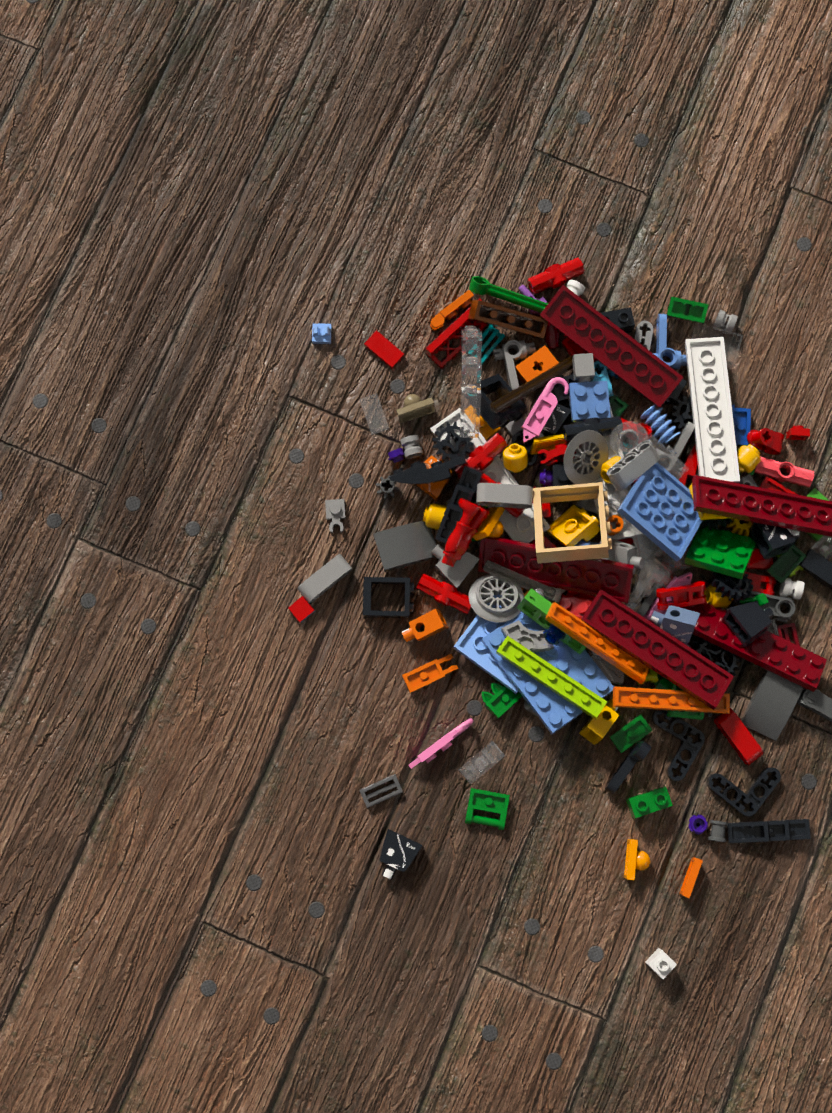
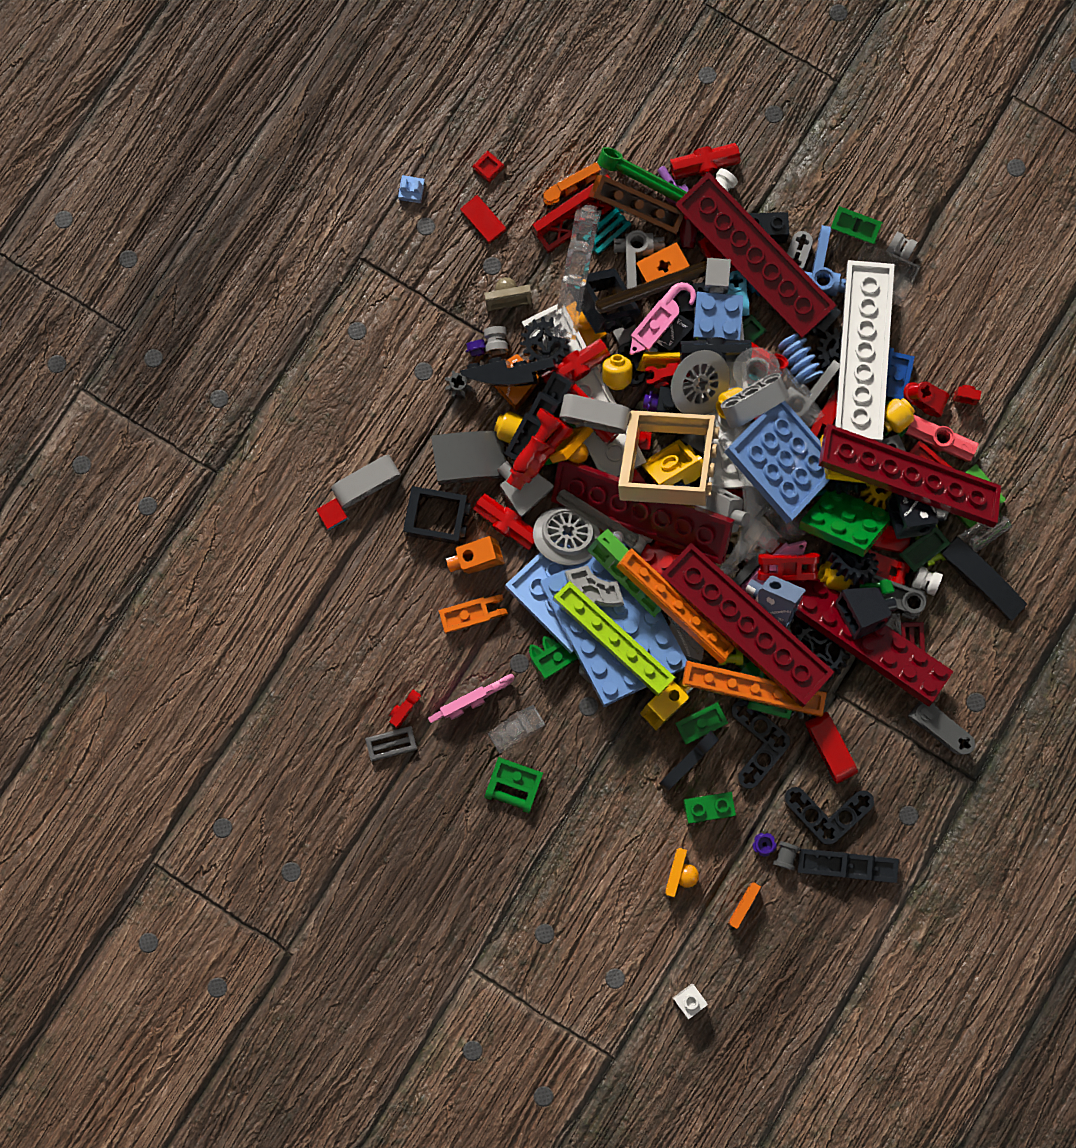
camera: 15 degrees right, 0 degrees up
(335, 511) = (392, 404): light grey plate -> none
(374, 414) = (458, 294): clear tile -> none
(381, 306) = (488, 166): none -> red tile
(384, 765) = (400, 713): none -> red plate
(397, 853) = (397, 819): black torso -> none
(553, 635) = (625, 588): clear blue plate -> none
(618, 523) = (721, 461): orange bush -> none
(771, 705) = (877, 716): dark grey slope -> none

